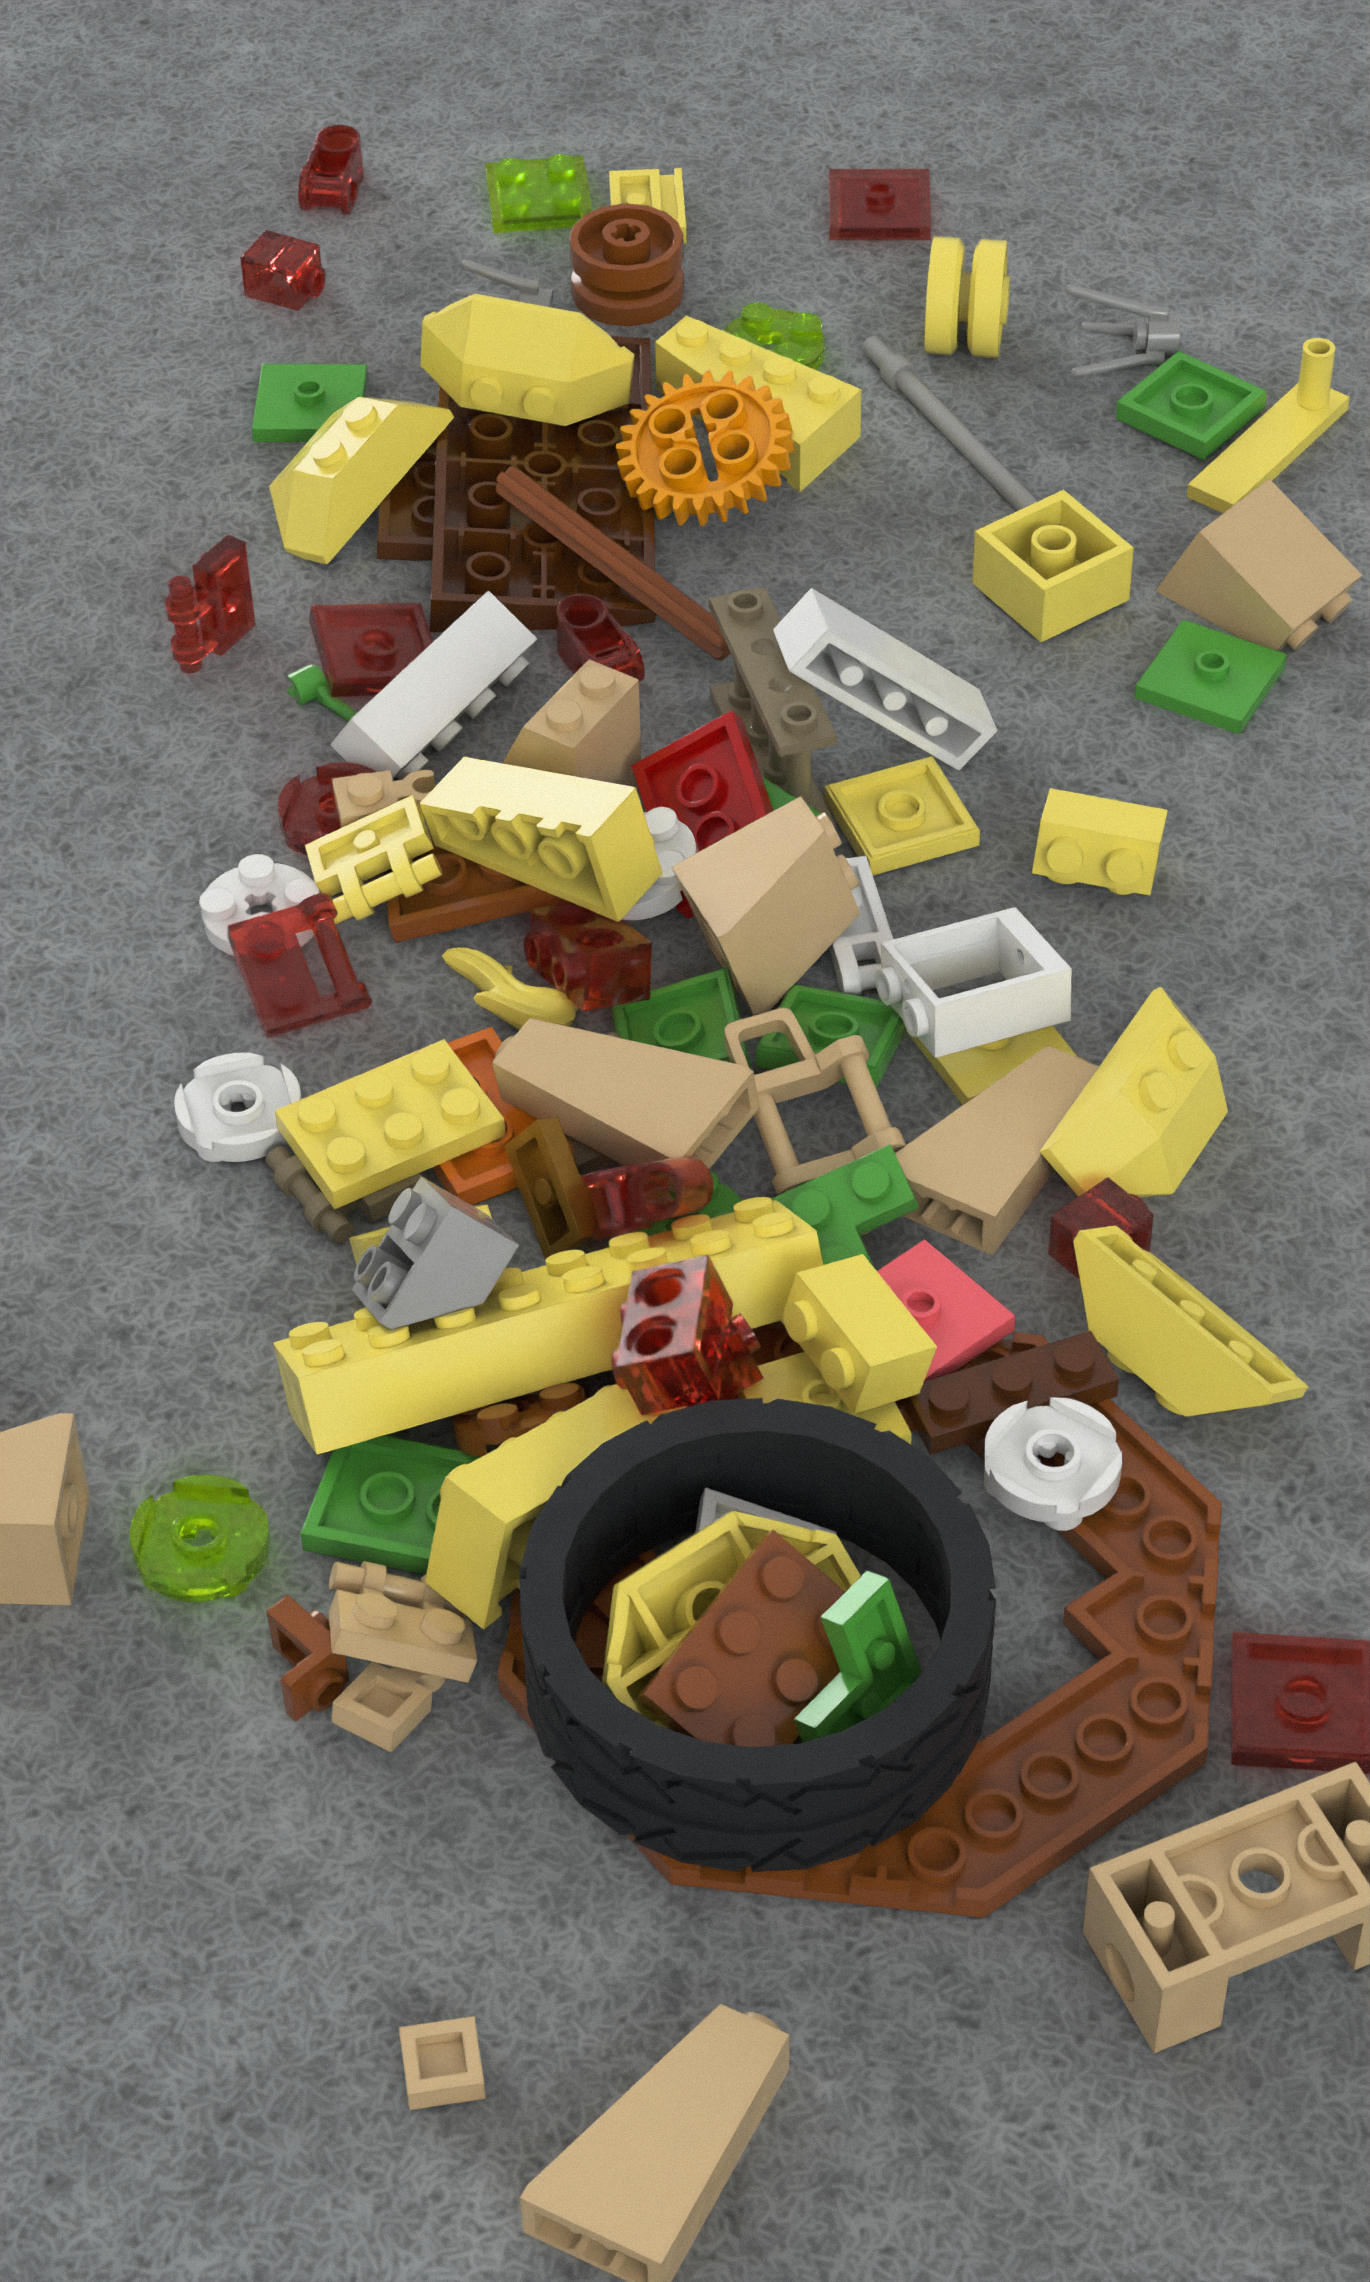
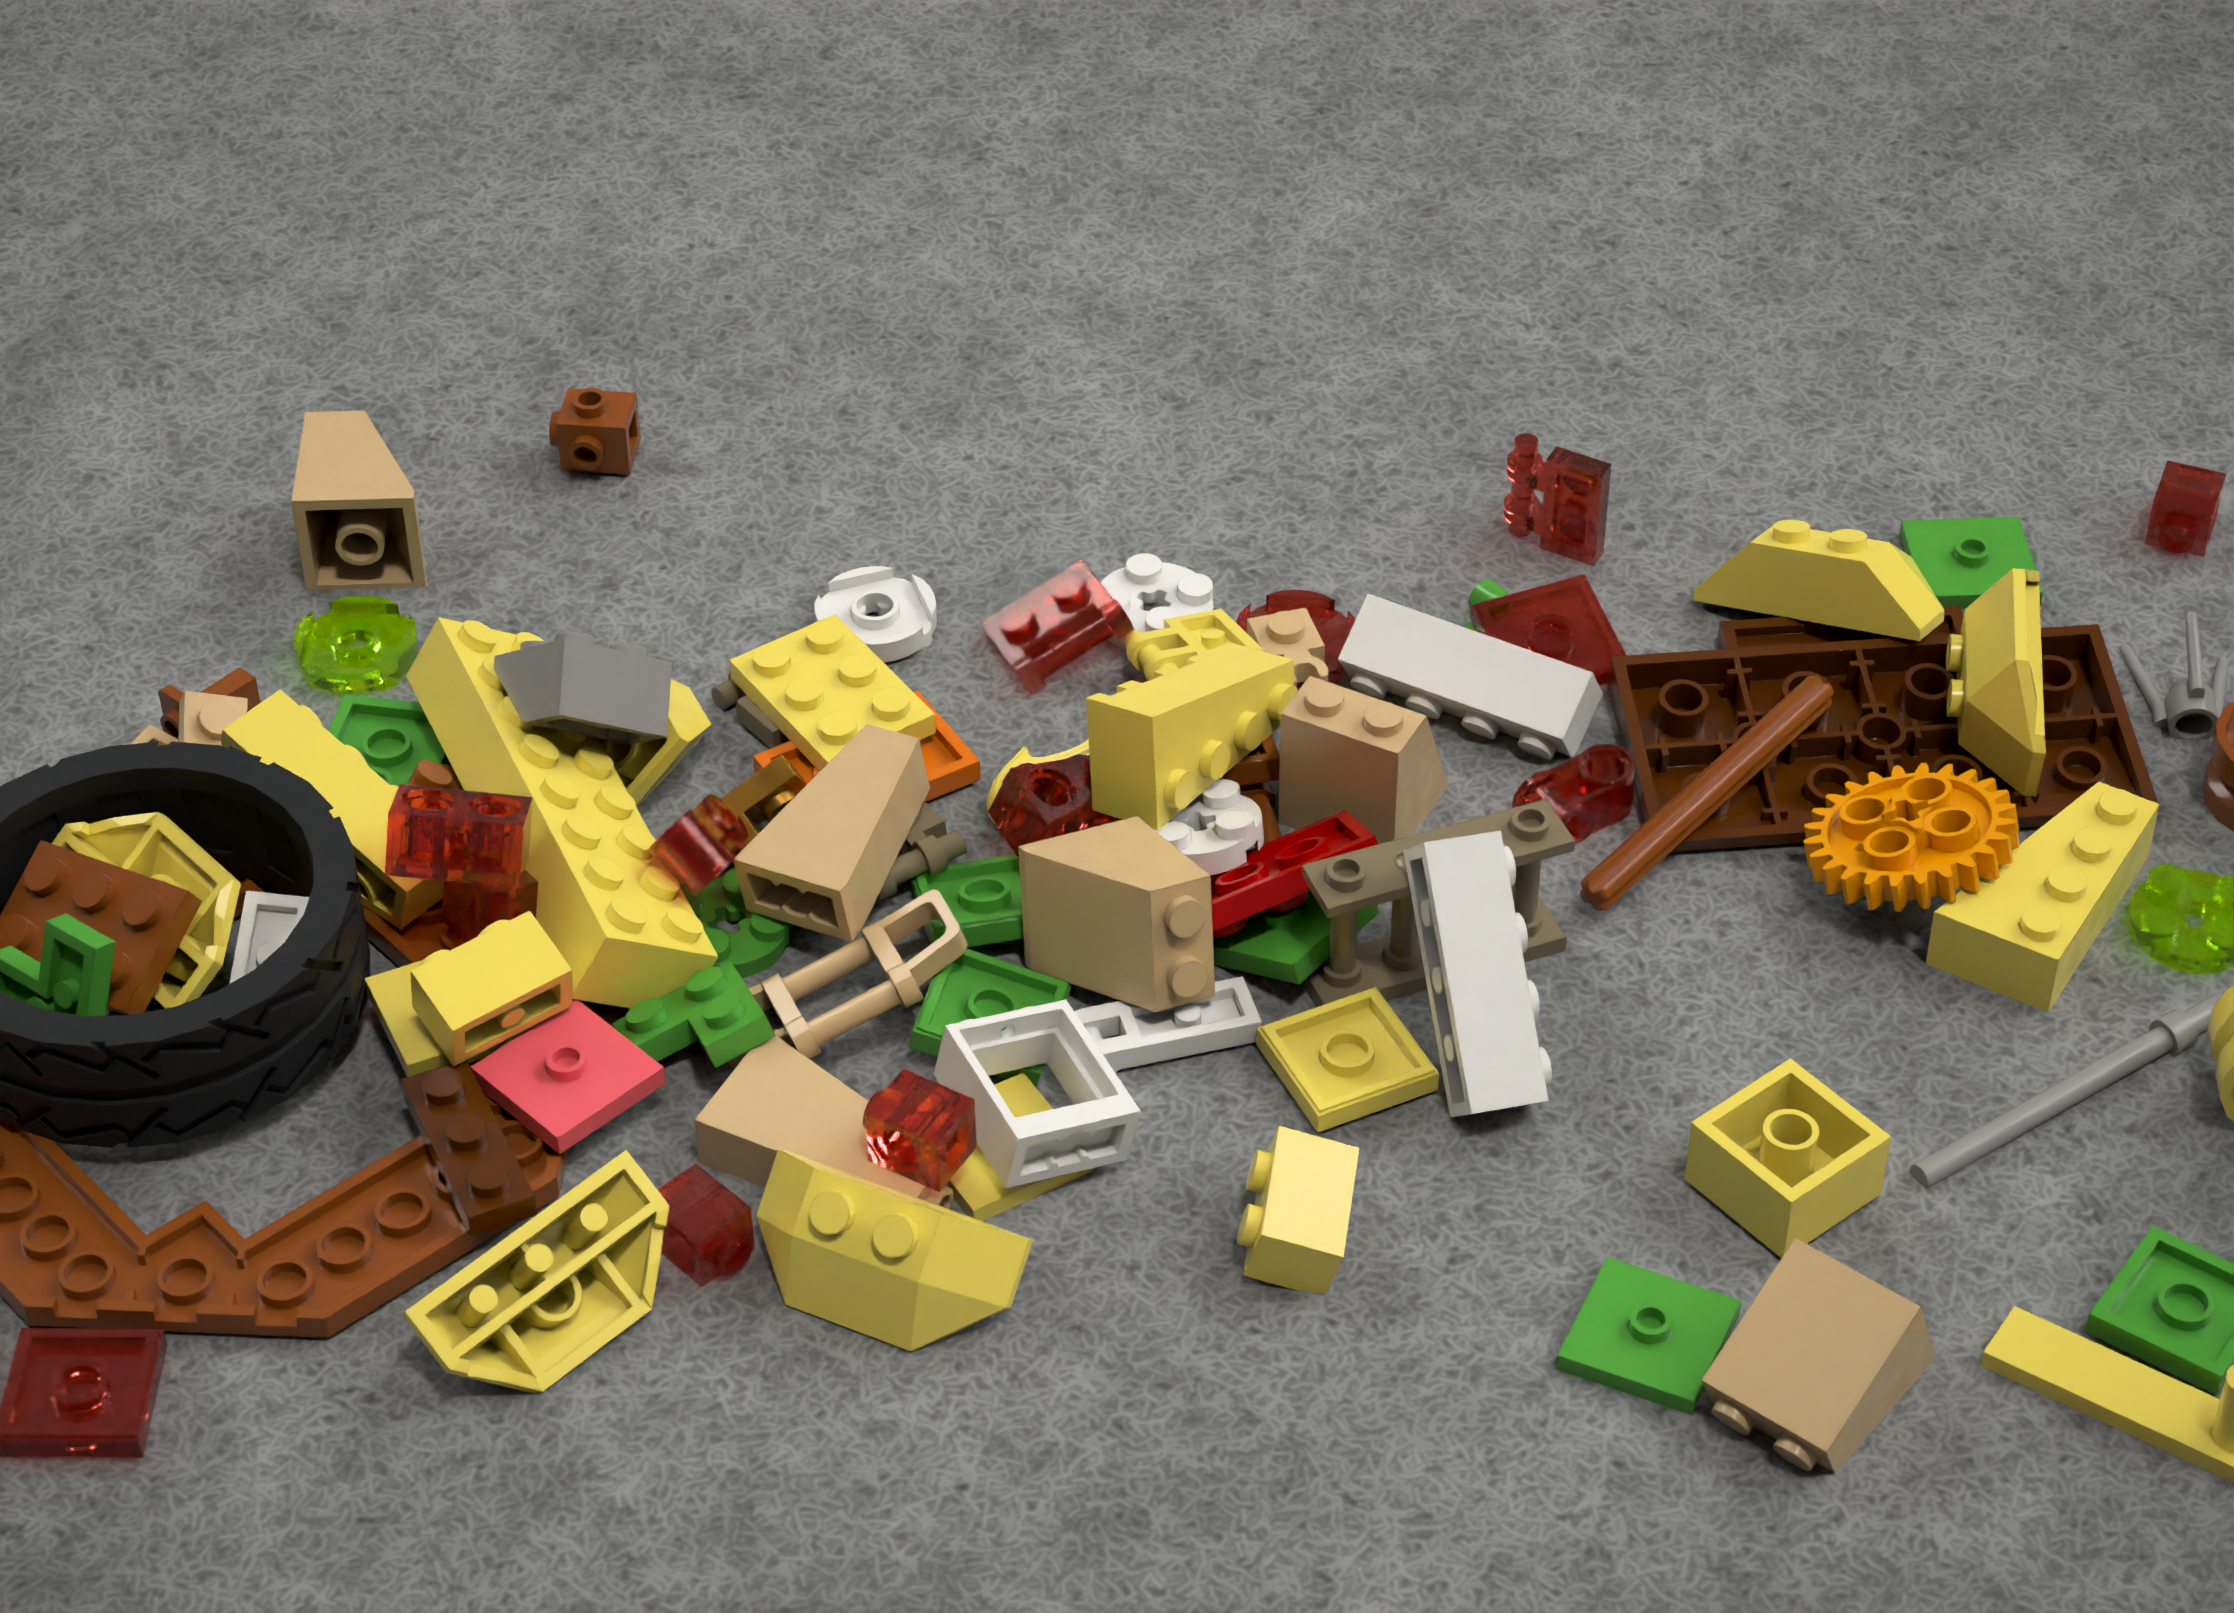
camera: 85 degrees right, 5 degrees down
(1046, 1039) = (920, 1129): none -> clear red brick
(1048, 1493) = (371, 1201): white plate -> none

